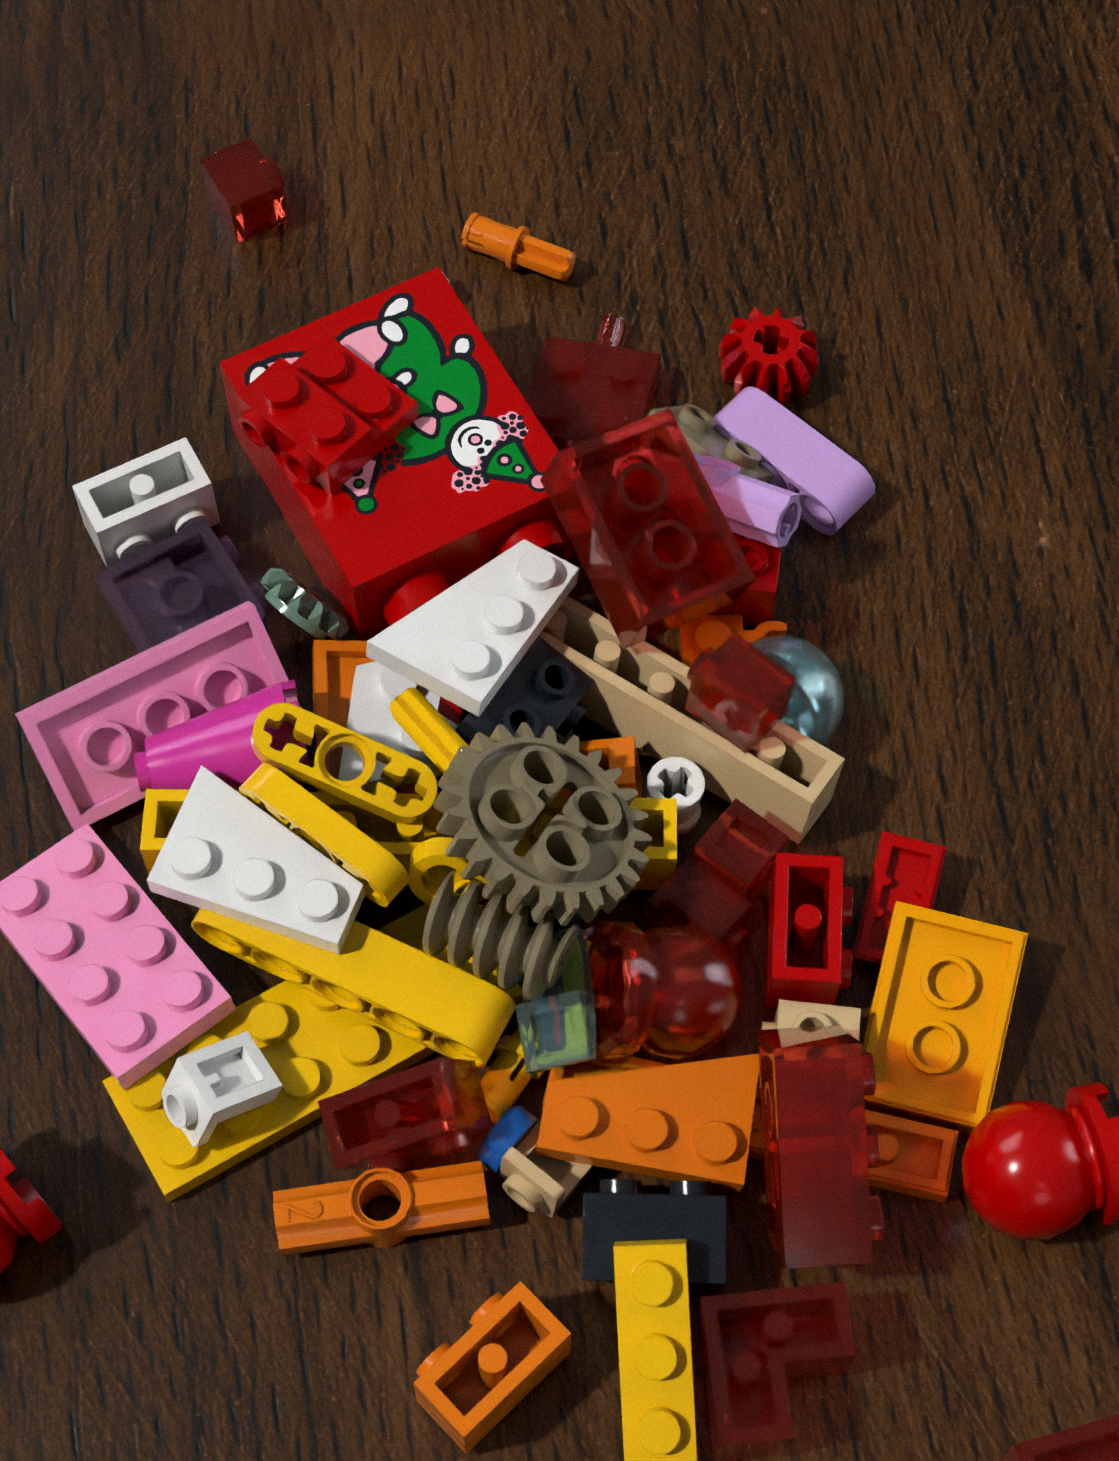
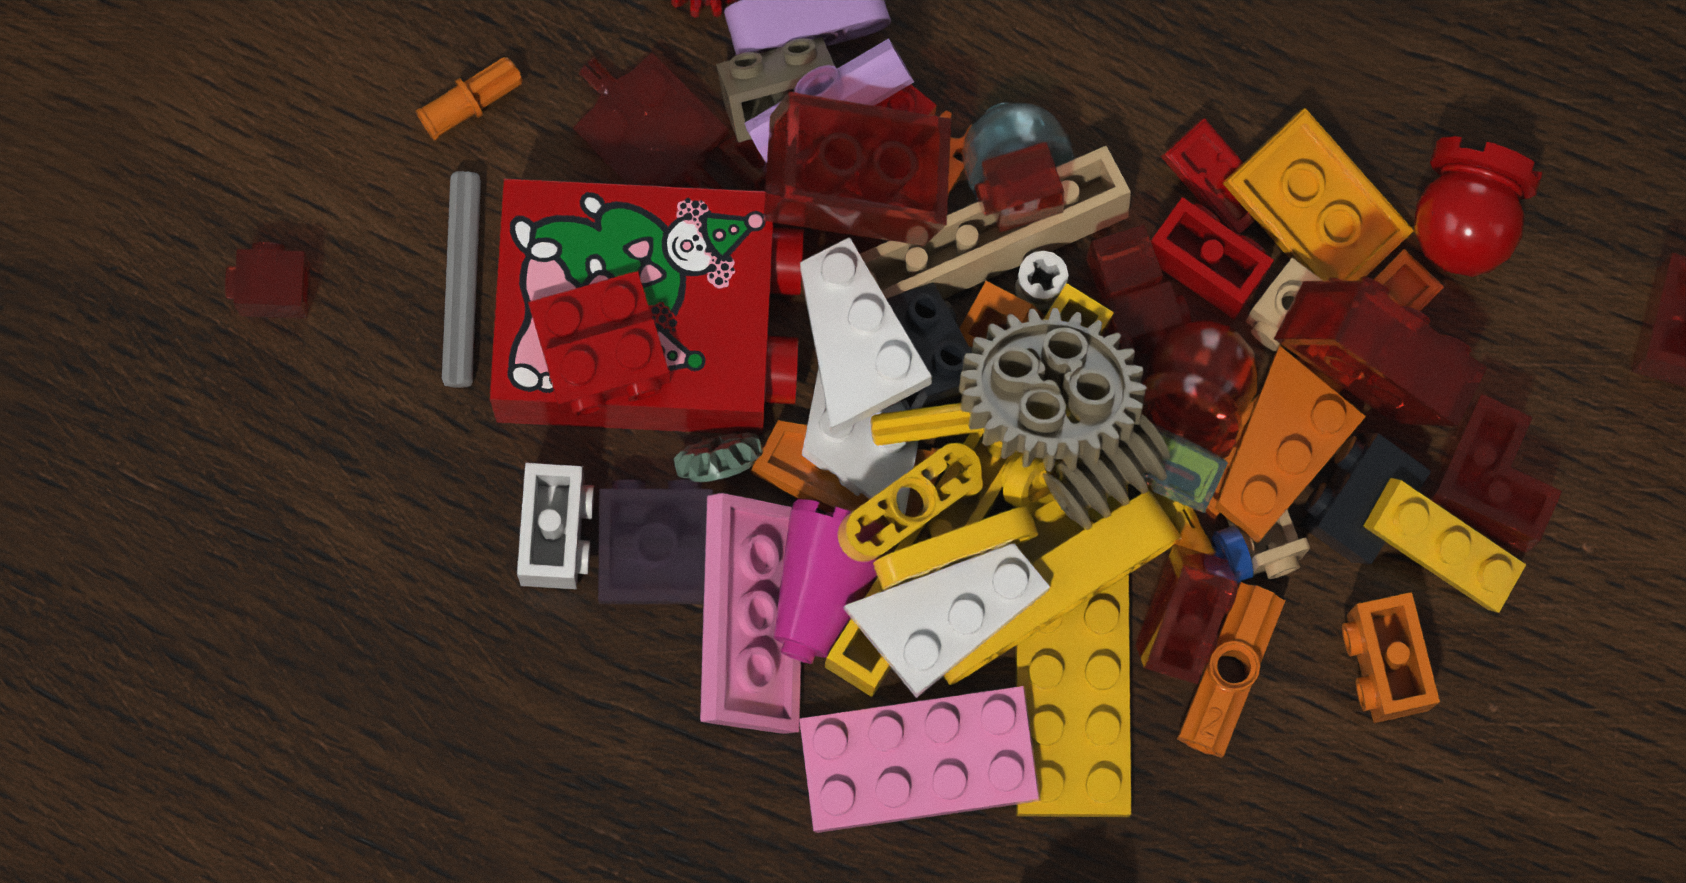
camera: 65 degrees left, 15 degrees up
(217, 1086) = (1087, 731): white bracket -> none

